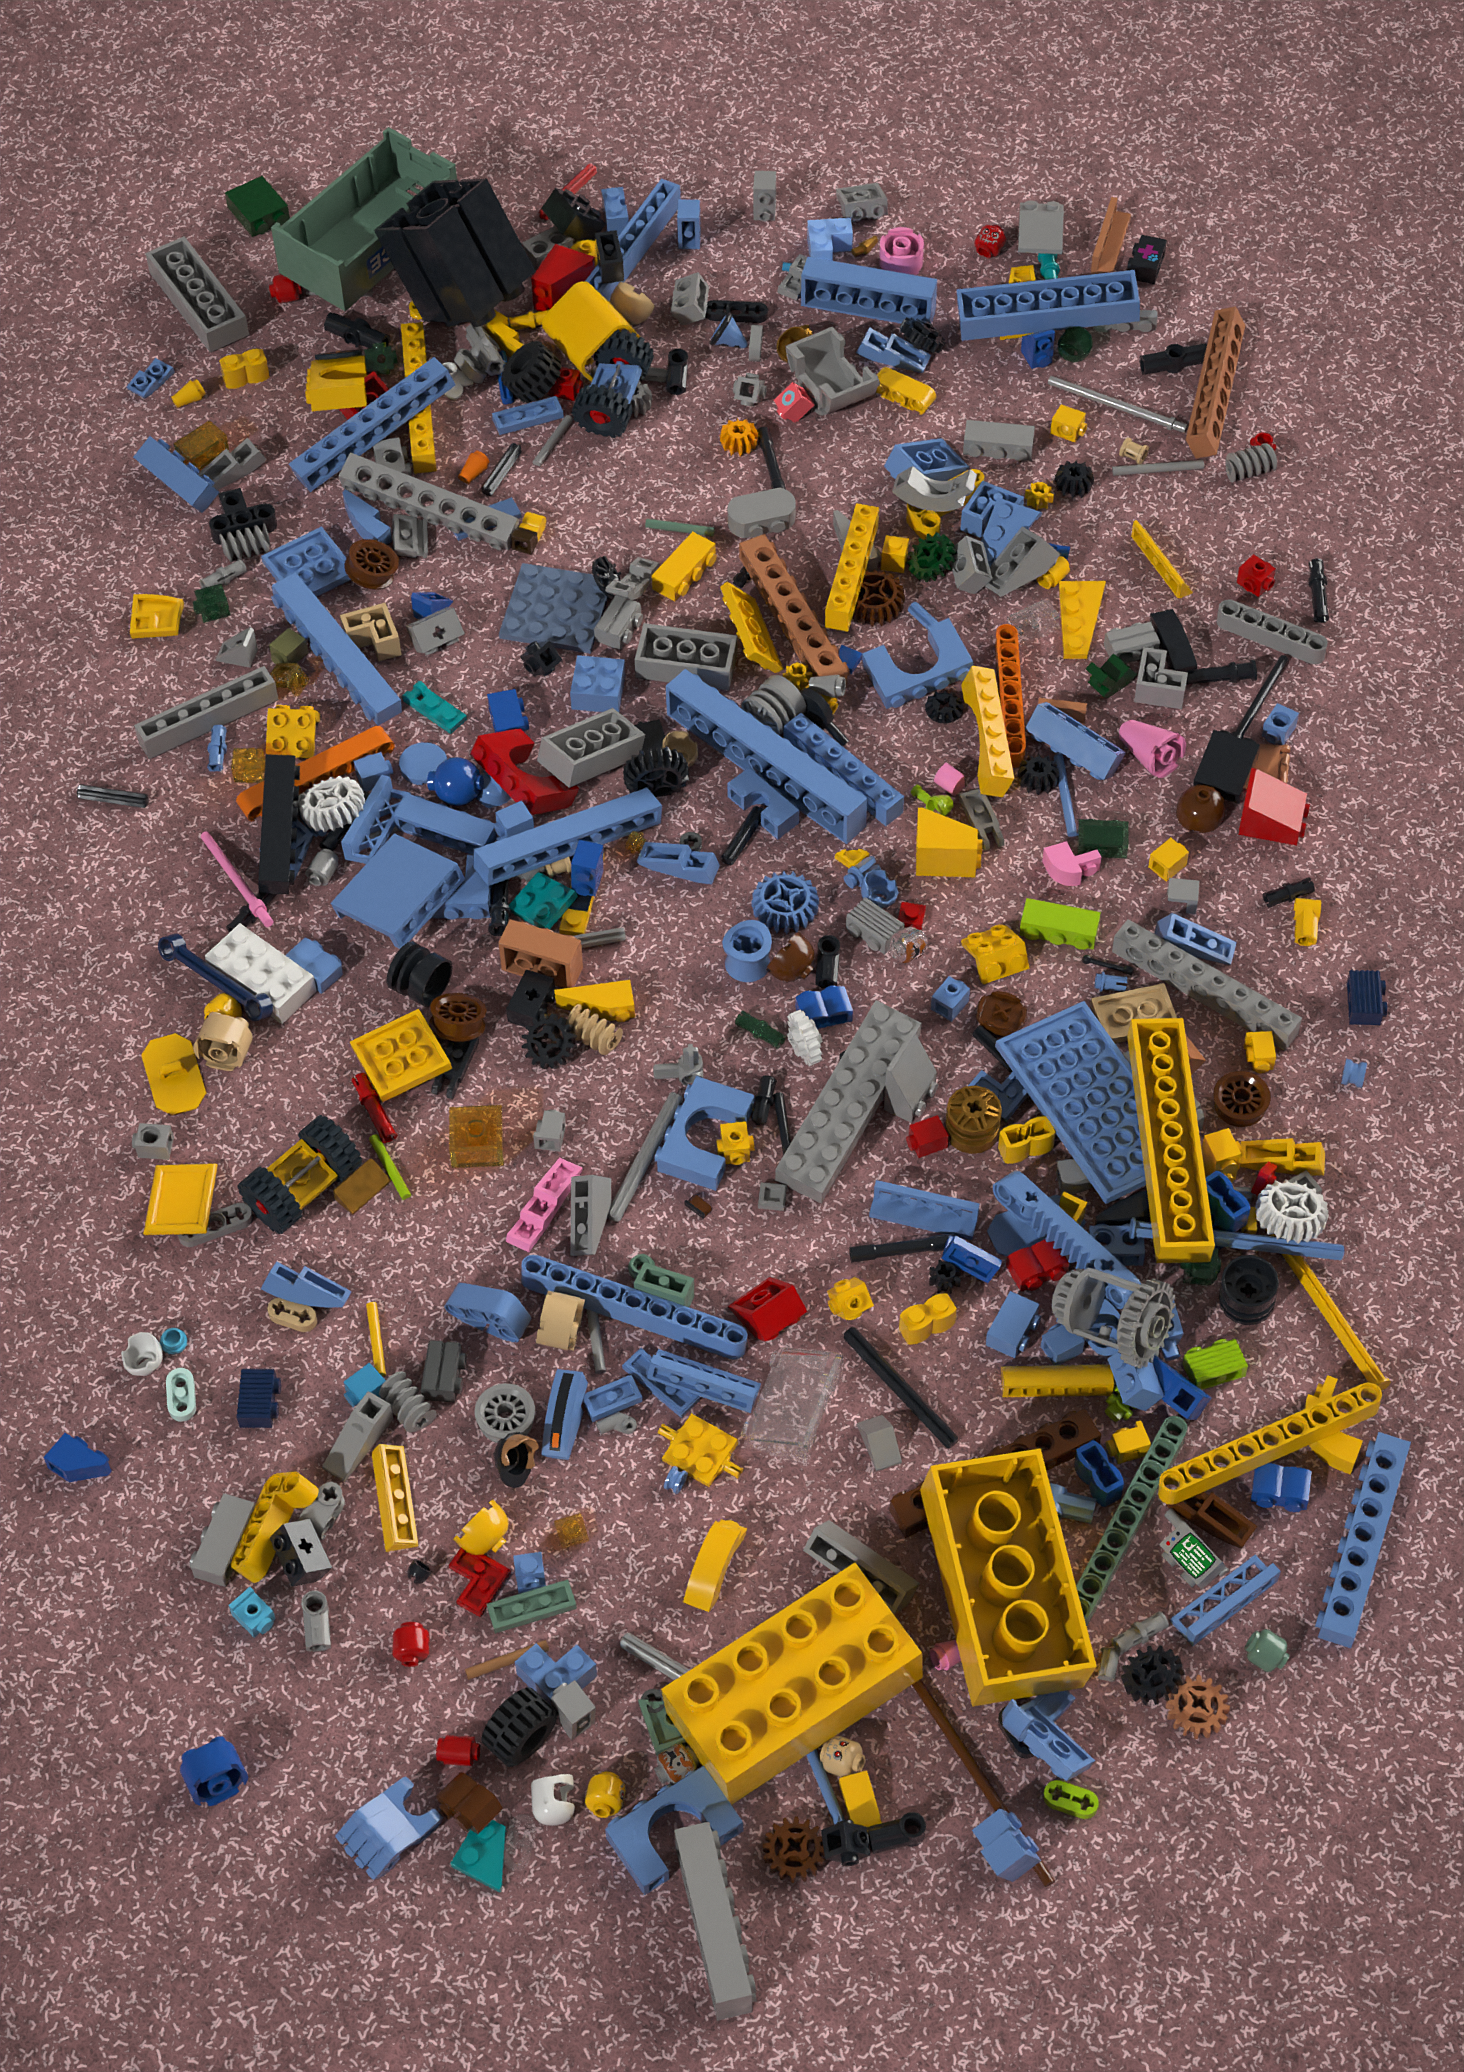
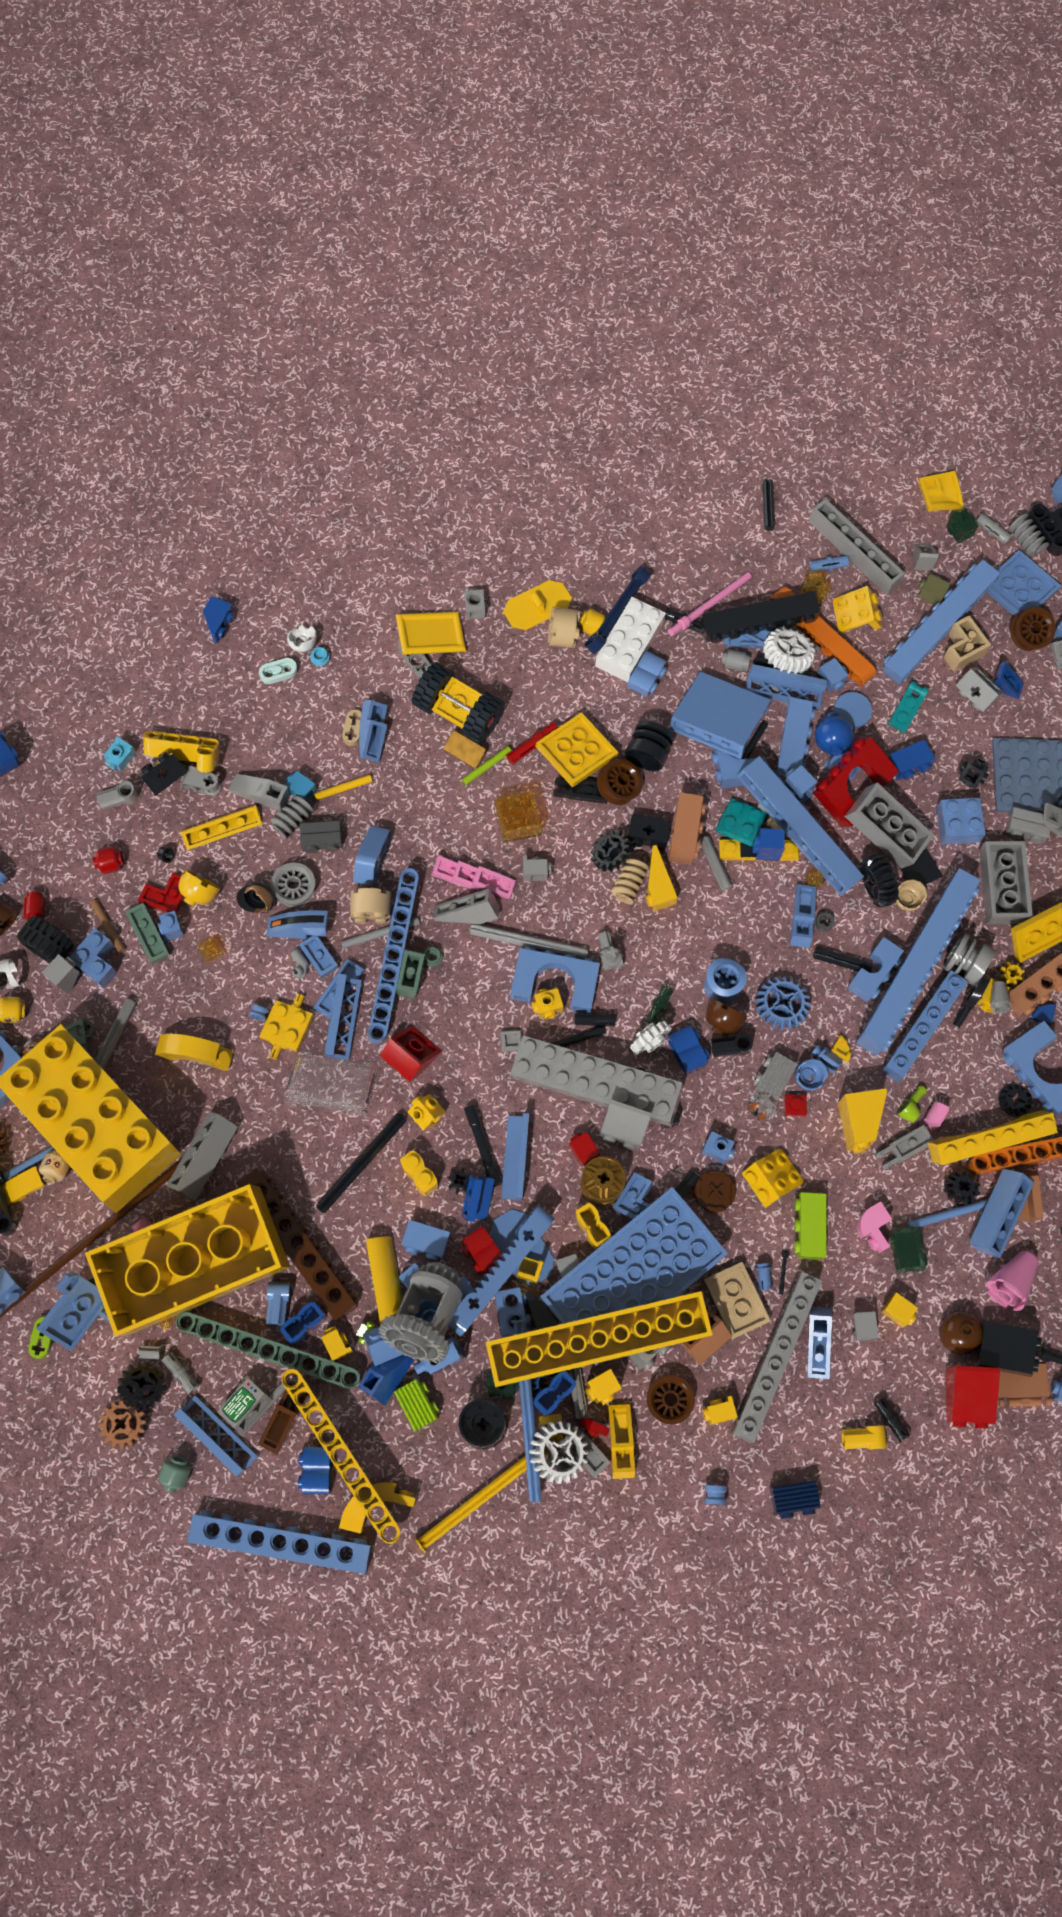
camera: 75 degrees right, 15 degrees up
(221, 1539) = (169, 721): light grey brick -> none
(257, 1398) = (281, 719): dark blue brick -> none
(290, 676) = (907, 597): clear yellow bracket -> none
(499, 910) = (712, 795): black pin -> none
(698, 1206) = (492, 988): reddish brown piece -> none
(880, 1442) = (313, 1153): light grey slope -> none

